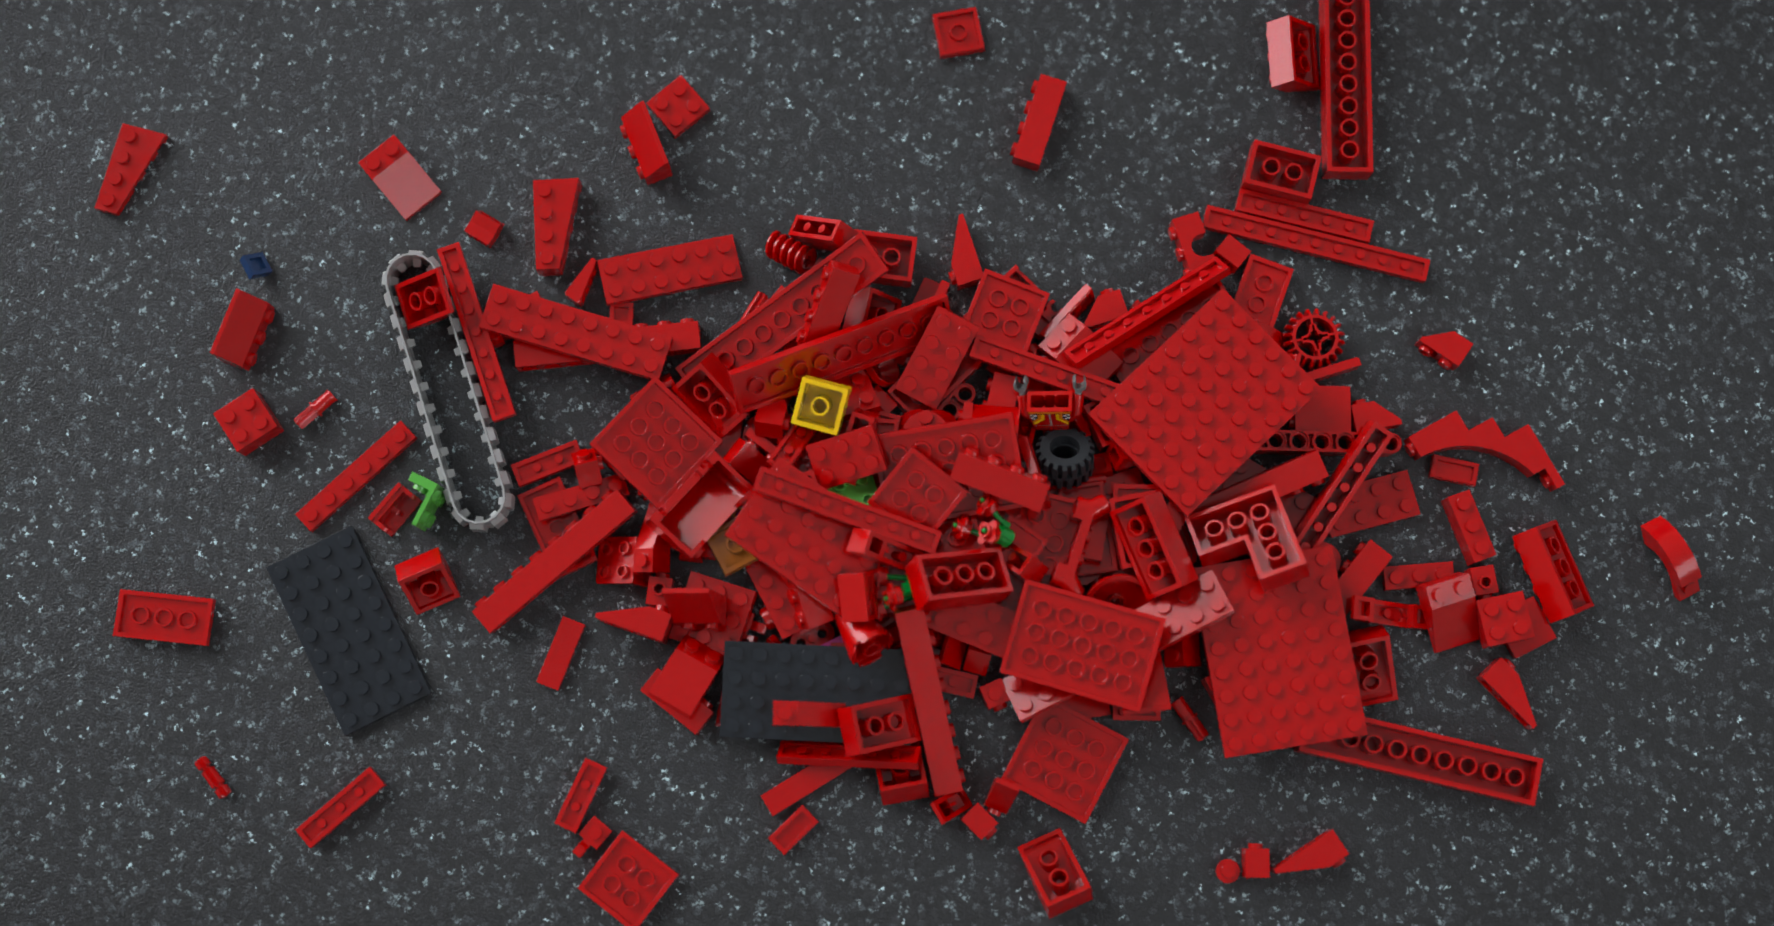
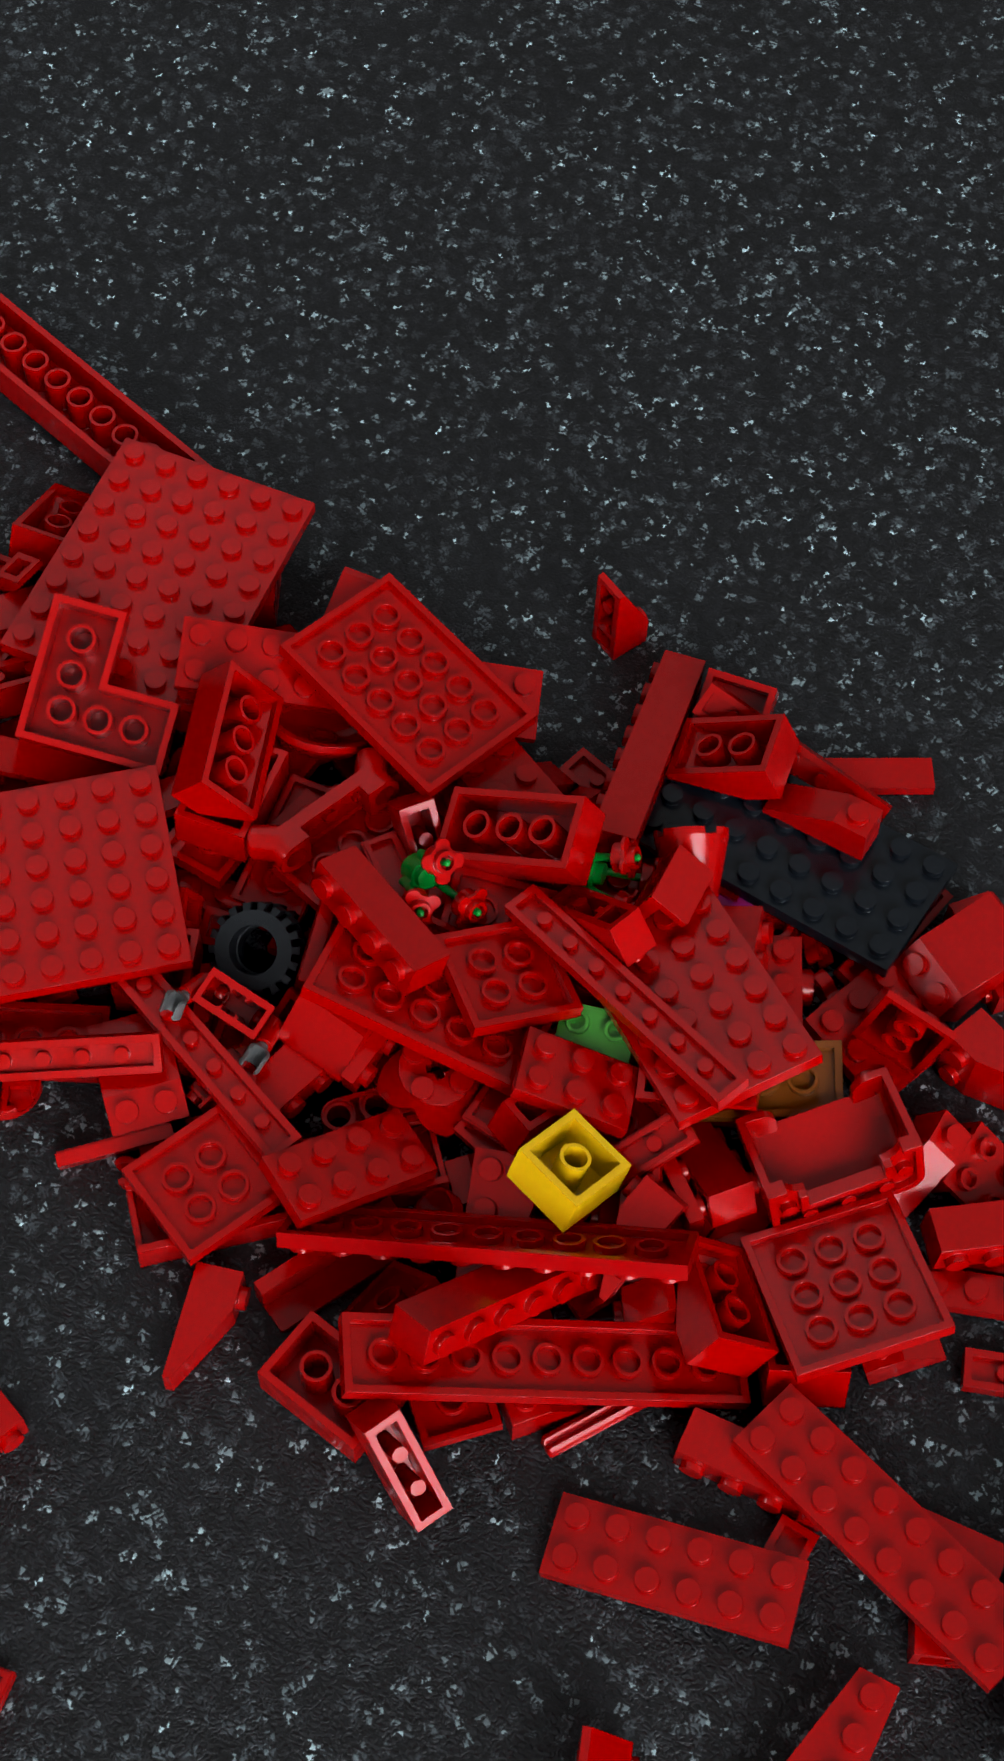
camera: 150 degrees left, 20 degrees down
(581, 285) = (839, 1626): red slope -> none
(587, 467) = (972, 1327): red brick -> none
(654, 591) = (944, 1093): red brick -> none
(790, 253) = (468, 1476): red piece -> none
(793, 830) = (911, 733): red tile -> none
(950, 806) = (698, 642): red slope -> none
(980, 822) = (666, 616): red brick -> none
(994, 695) = (552, 736): red brick -> none
(1055, 873) = (605, 519): red slope -> none
(1065, 760) = (518, 616): red plate -> none
(1106, 308) = (57, 1122): red slope -> none
(1190, 719) = (321, 587): red axle -> none
(1227, 871) = (395, 425): red plate -> none
(1255, 861) = (357, 412): red brick -> none
(1320, 852) = (281, 385): red slope -> none

